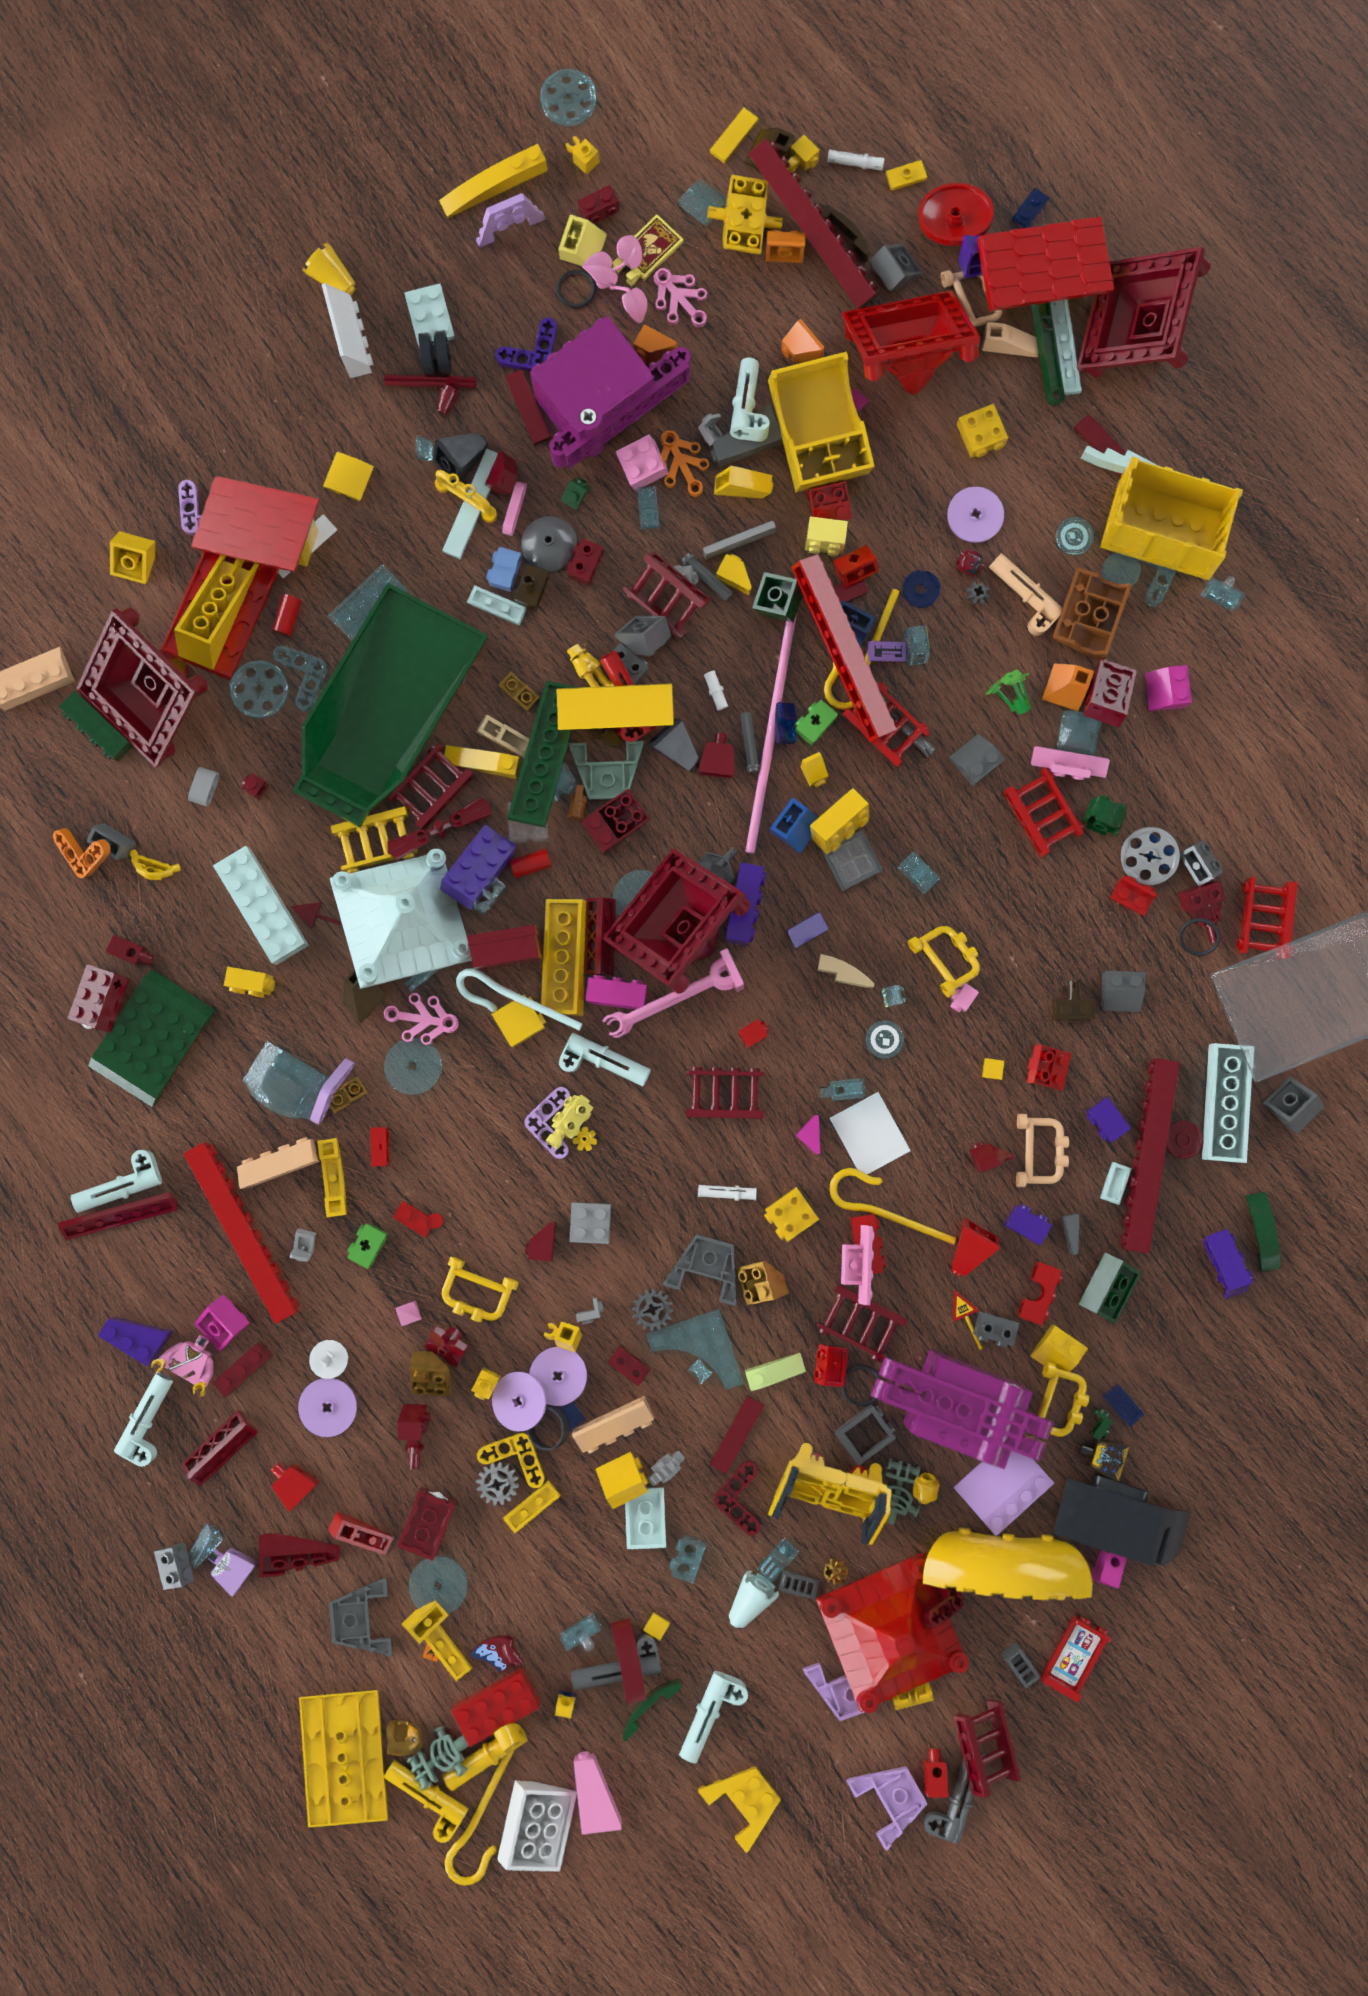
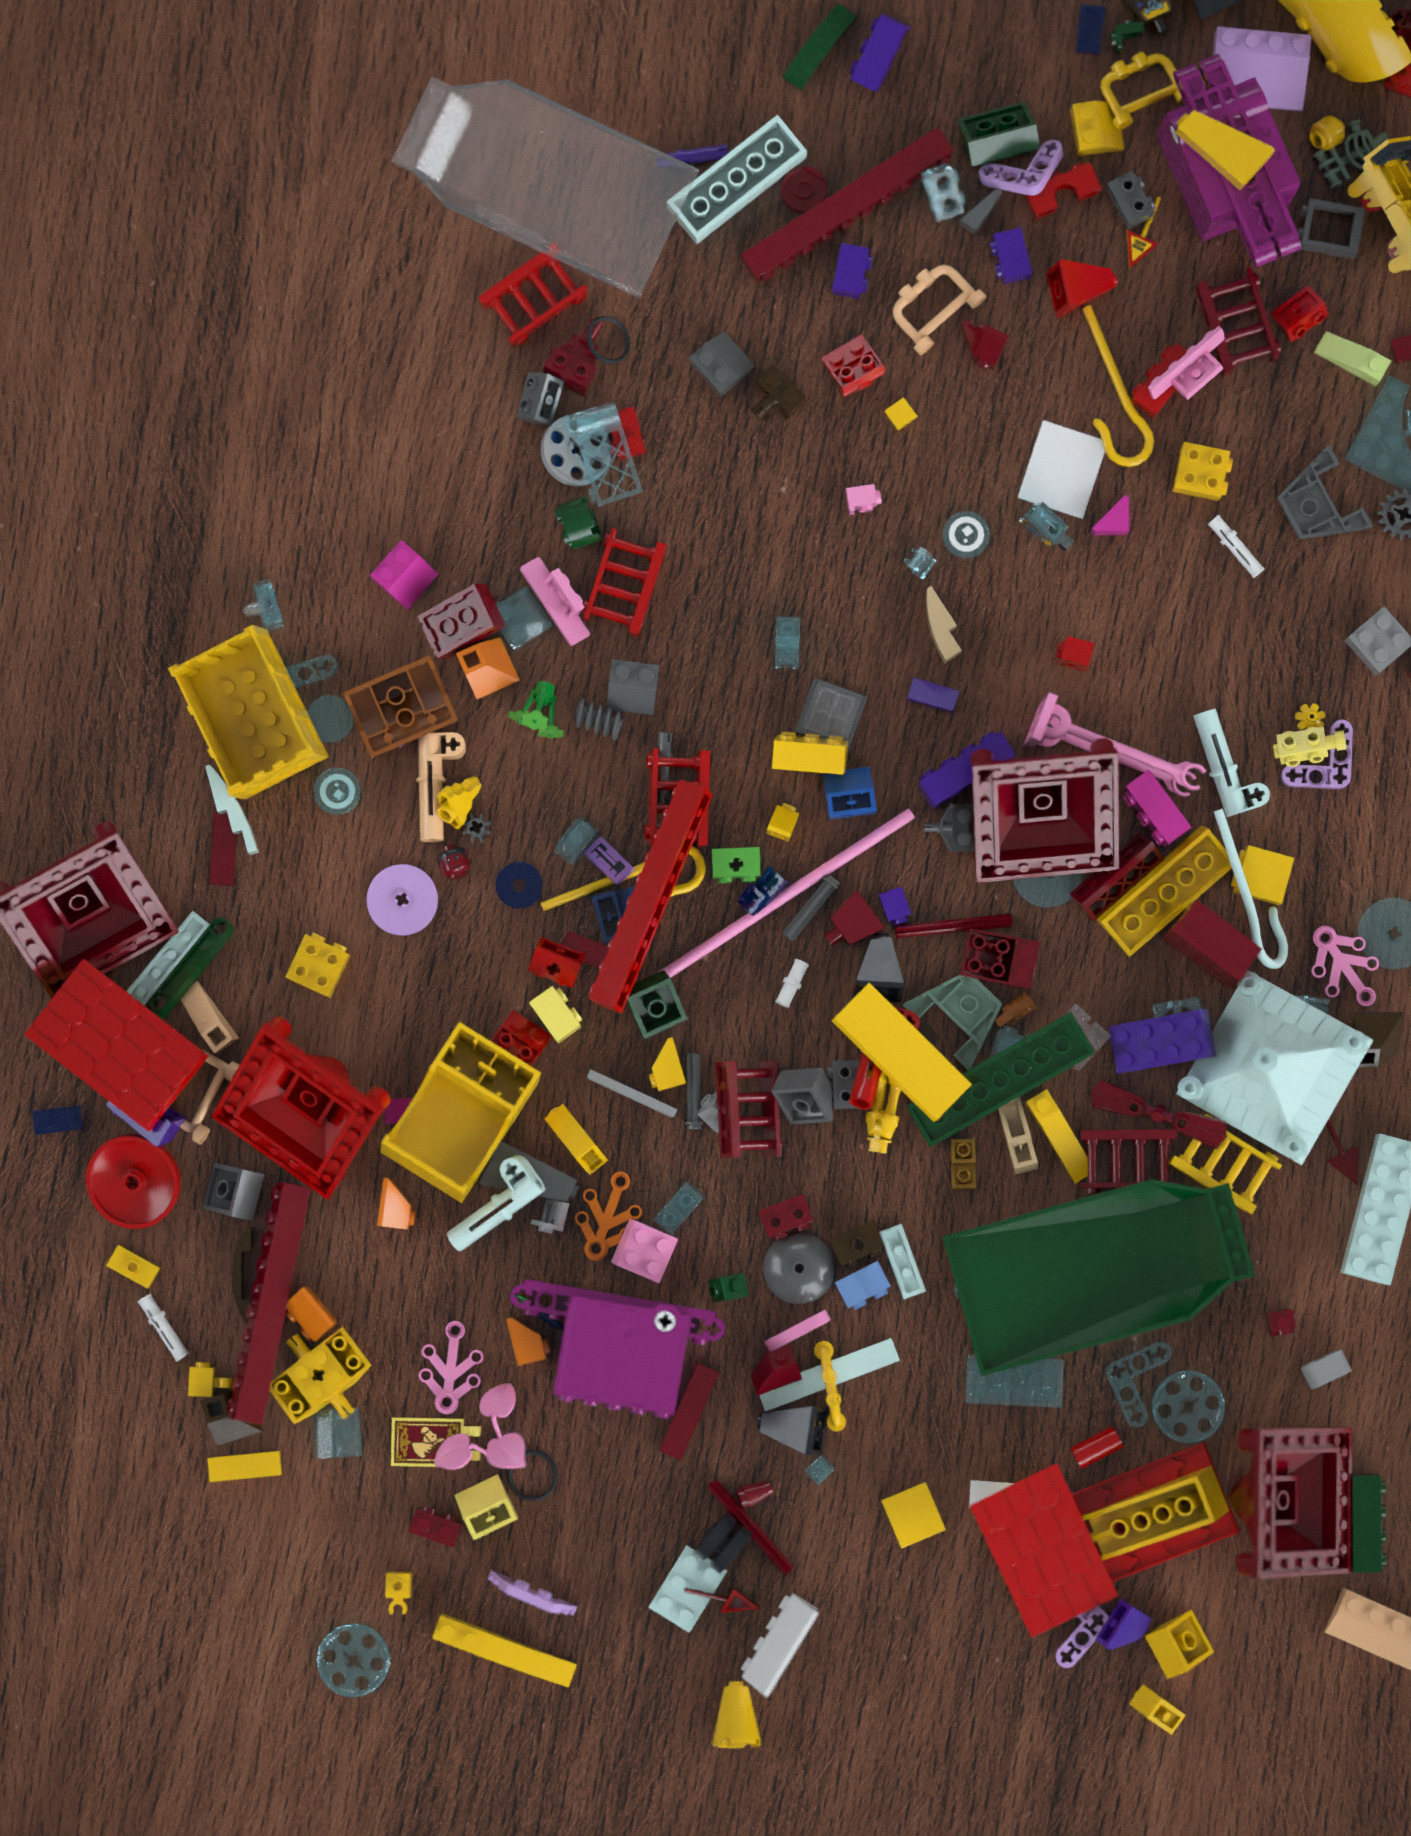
camera: 135 degrees left, 0 degrees up
(109, 510) = (1157, 1709): none -> yellow slope
(171, 533) = (1123, 1626): none -> dark purple slope
(398, 332) = (734, 1602): none -> piece
(530, 863) = (1110, 1002): red brick -> none
(533, 357) = (637, 1452): dark purple beam -> none
(660, 815) = (953, 925): none -> dark red axle
(704, 790) = (895, 906): none -> dark purple brick
(734, 1110) = (1158, 607): dark red fence -> none
(761, 1282) = (1287, 440): pearl gold slope -> none
(844, 1391) = (1288, 293): black tyre -> none
(959, 941) = (814, 549): yellow bar -> none
(975, 720) = (598, 719): none -> dark grey piece
(977, 1405) = (1223, 147): none -> yellow slope
(1004, 595) = (456, 801): none -> yellow rock
(1065, 1276) = (1027, 181): none -> lavender beam
(1107, 1215) = (939, 193): none -> clear light blue brick
(1115, 1183) = (899, 213): light aqua tile -> none
(1157, 875) = (595, 423): none -> clear light blue piece
(1264, 1093) = (701, 154): none -> dark purple pin
(1294, 1104) = (681, 121): dark grey slope -> none

